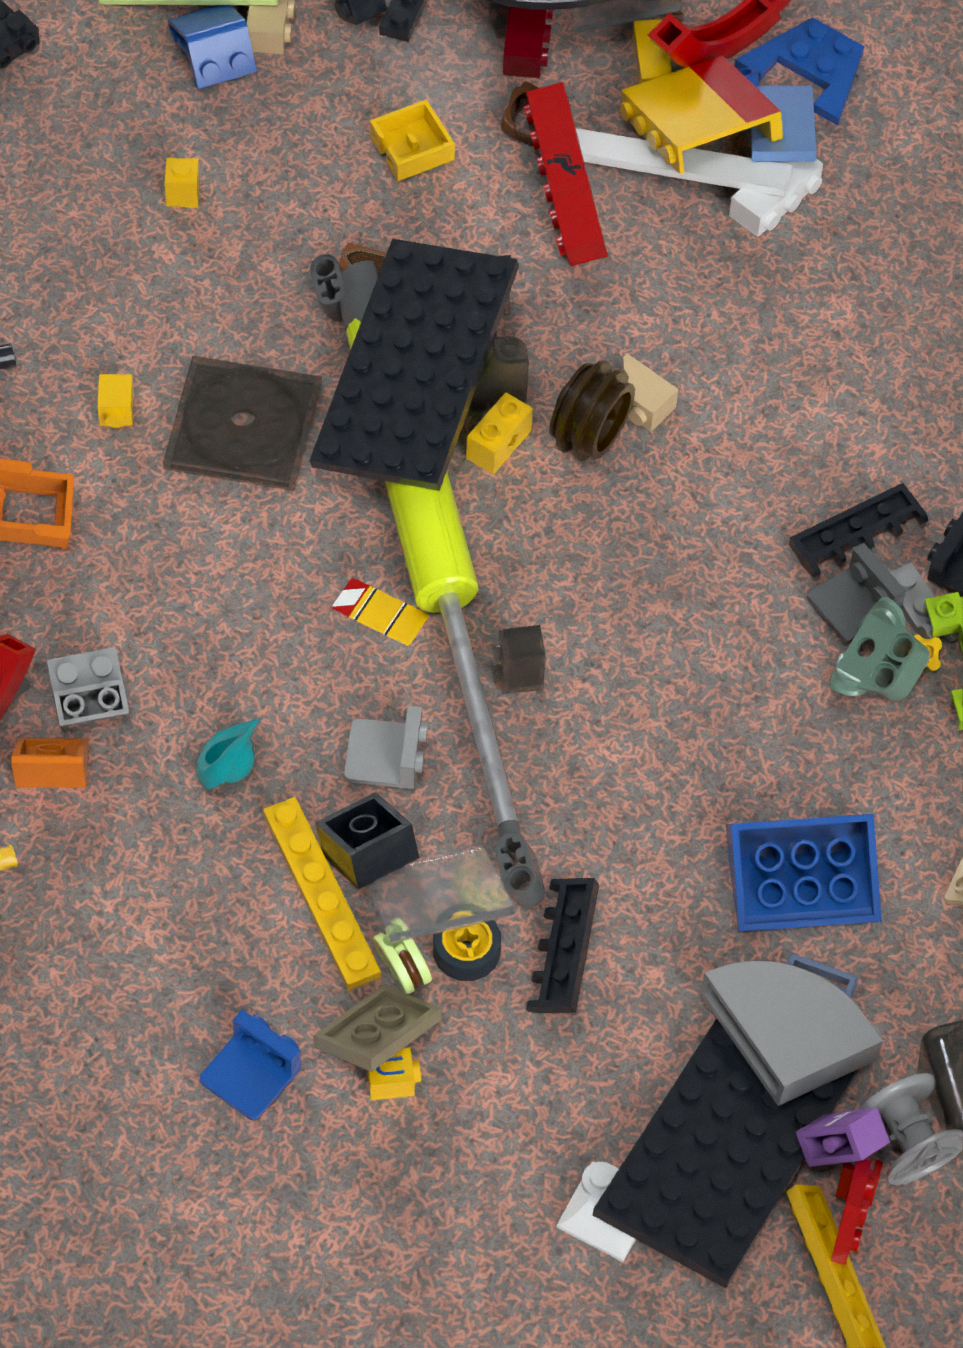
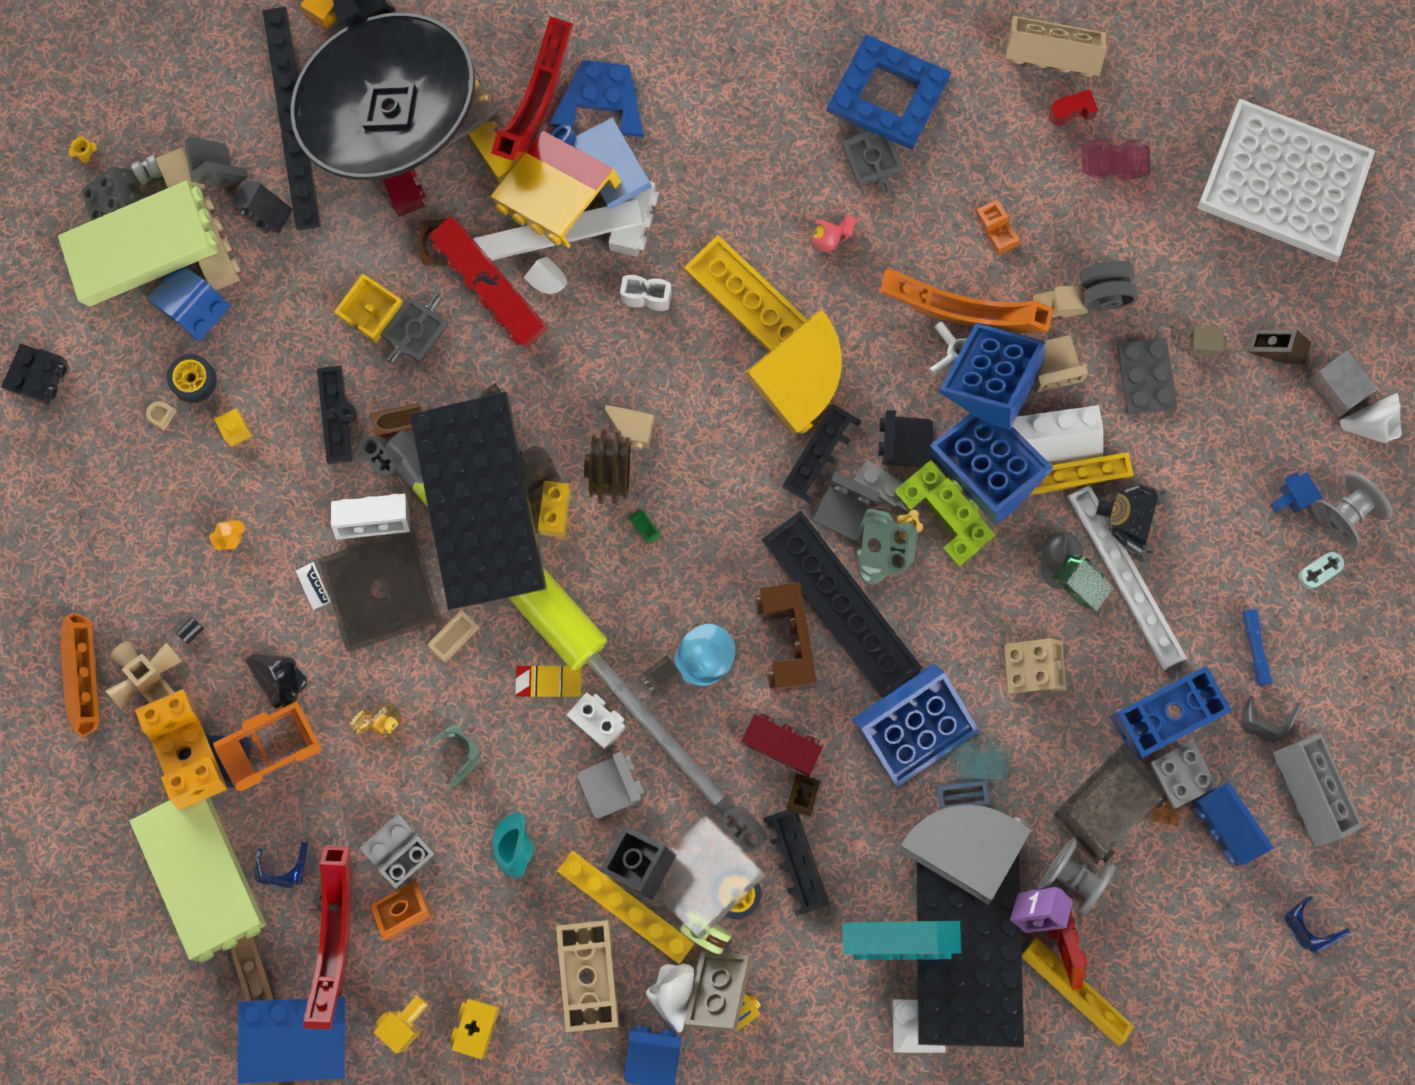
camera: 25 degrees left, 20 degrees up
(56, 925) = (475, 1044): none -> yellow brick
(69, 447) = (277, 677): none -> black hat
(105, 282) = (227, 534): none -> light orange rock
(108, 137) = (160, 414): none -> tan tile
(115, 400) = (288, 622): yellow brick -> none
(157, 550) = (382, 720): none -> clear yellow piece
(167, 384) = (313, 586): none -> white sticker
(170, 104) = (179, 378): none -> wheel
(211, 959) = (595, 1003): none -> tan plate
(235, 606) = (473, 752): none -> sand green helmet
(280, 339) = (370, 516): none -> white brick
(297, 509) = (453, 636): none -> tan tile
(305, 226) = (336, 415): none -> black hinge
(315, 1006) = (672, 994): none -> white hat
(411, 672) = (596, 720): none -> white brick
(451, 185) = (414, 329): none -> dark grey plate
(588, 673) = (705, 655): none -> medium azure hat
(597, 509) = (645, 527): none -> green piece
(614, 879) = (803, 795): none -> dark brown slope
(622, 809) = (782, 744): none -> dark red brick
(636, 202) = (546, 276): none -> white brick
(644, 1072) = (901, 940): none -> teal piece
(684, 732) = (788, 602): none -> reddish brown plate
(744, 267) = (641, 292): none -> white brick
(788, 698) = (842, 604): none -> black plate
(861, 952) = (981, 763): none -> clear light blue brick
(868, 339) = (744, 293): none -> yellow plate
(880, 428) = (800, 373): none -> yellow brick

